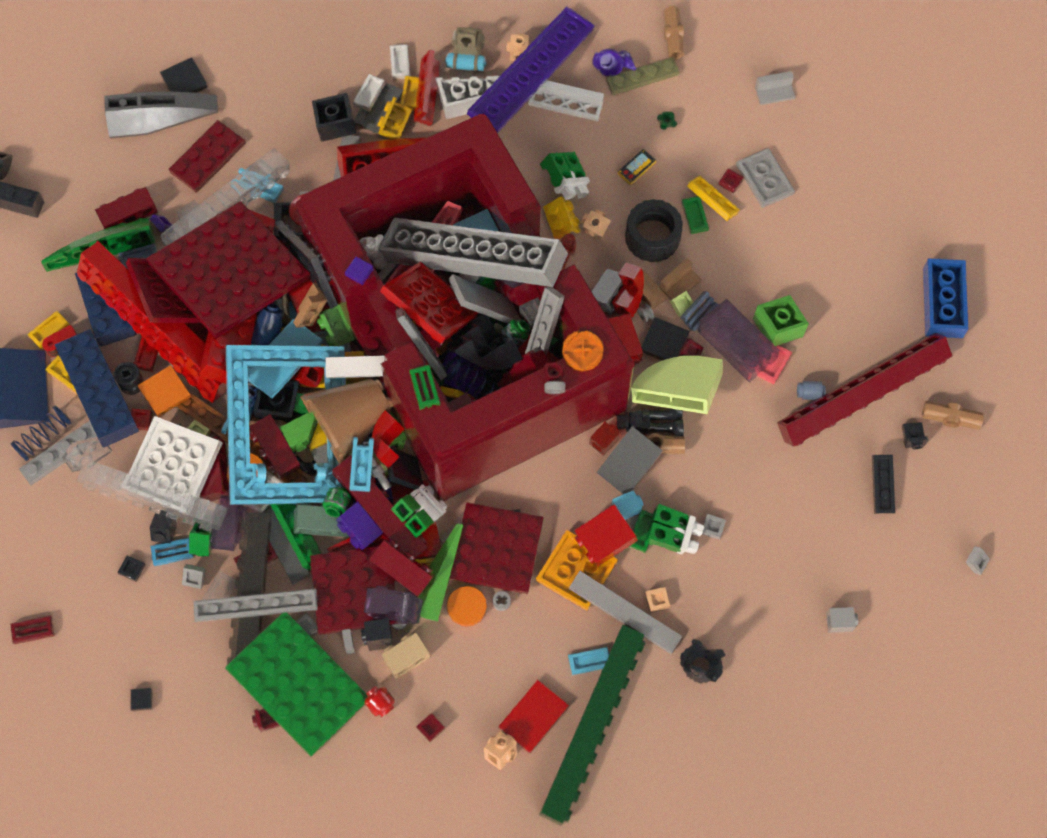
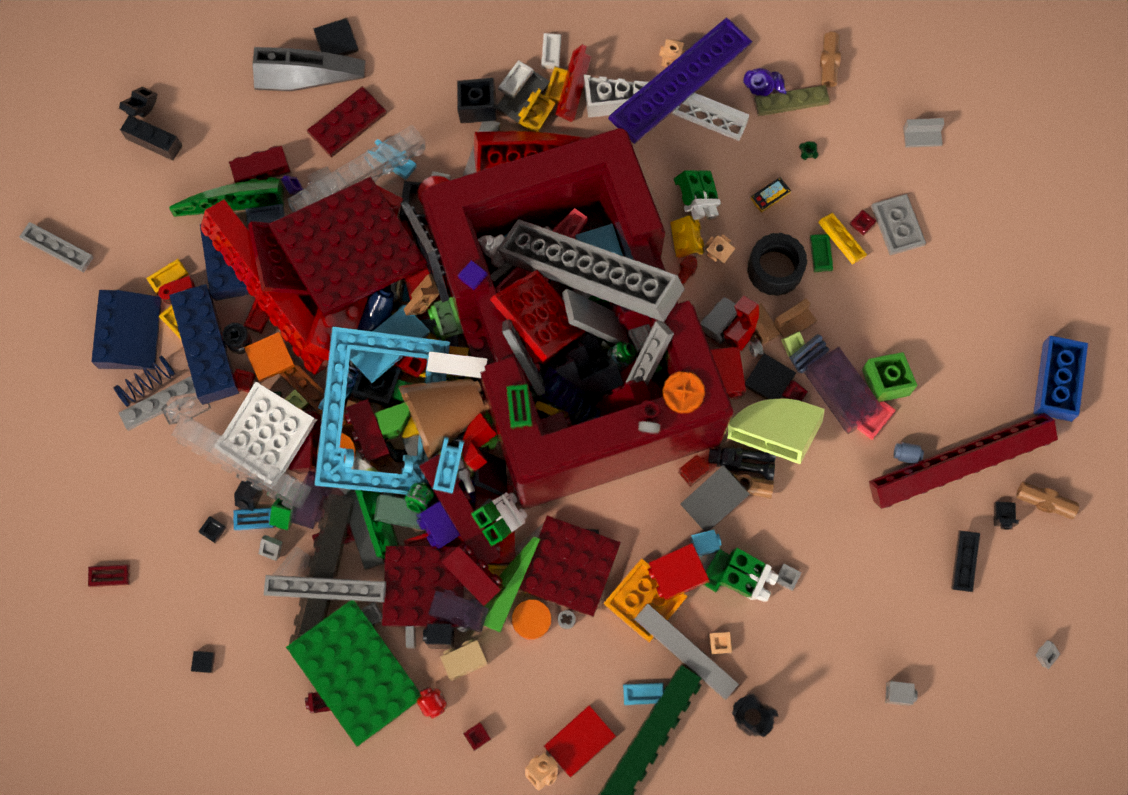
camera: 10 degrees right, 5 degrees up
(466, 50) = (619, 50): dark tan piece -> none

